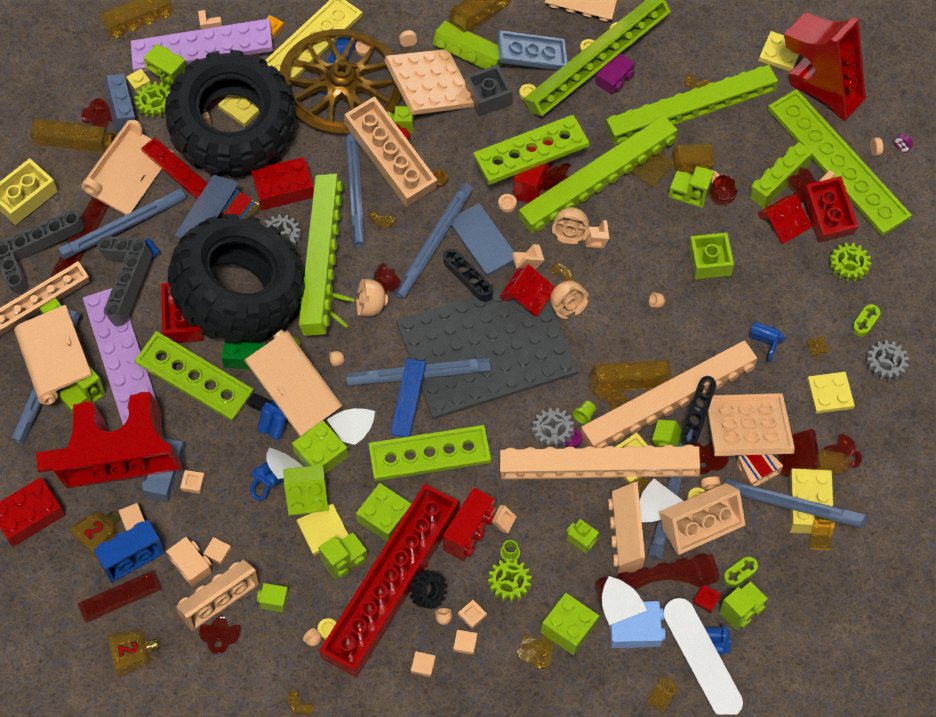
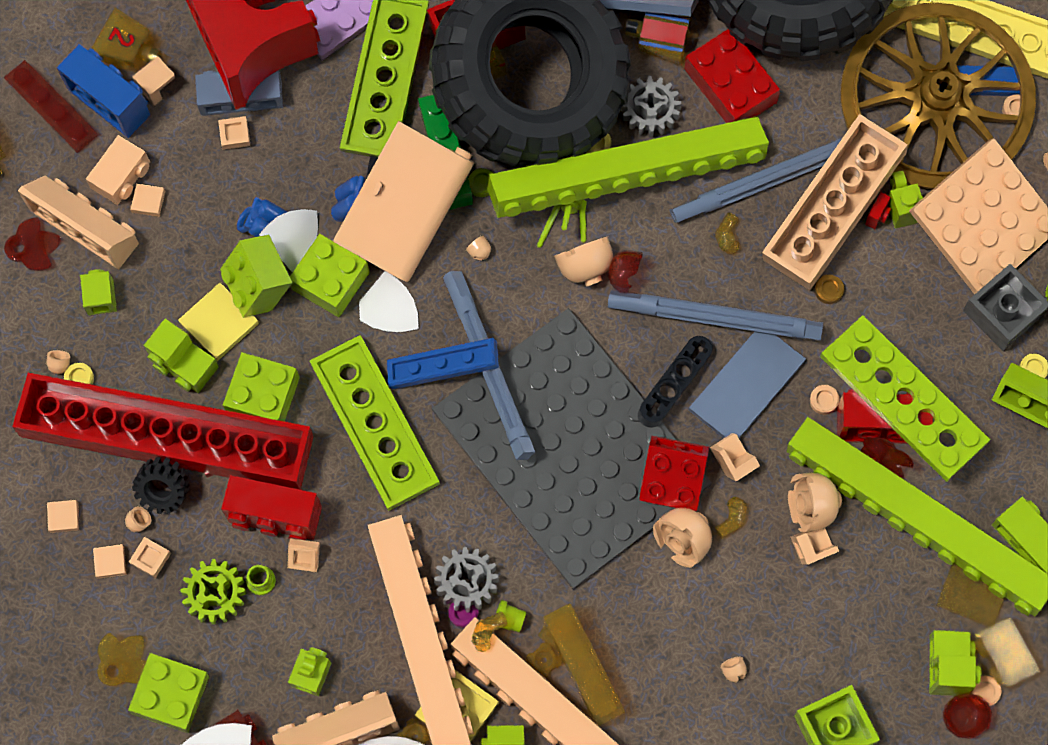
camera: 75 degrees right, 10 degrees up
(593, 421) = (484, 629): none -> clear yellow arm

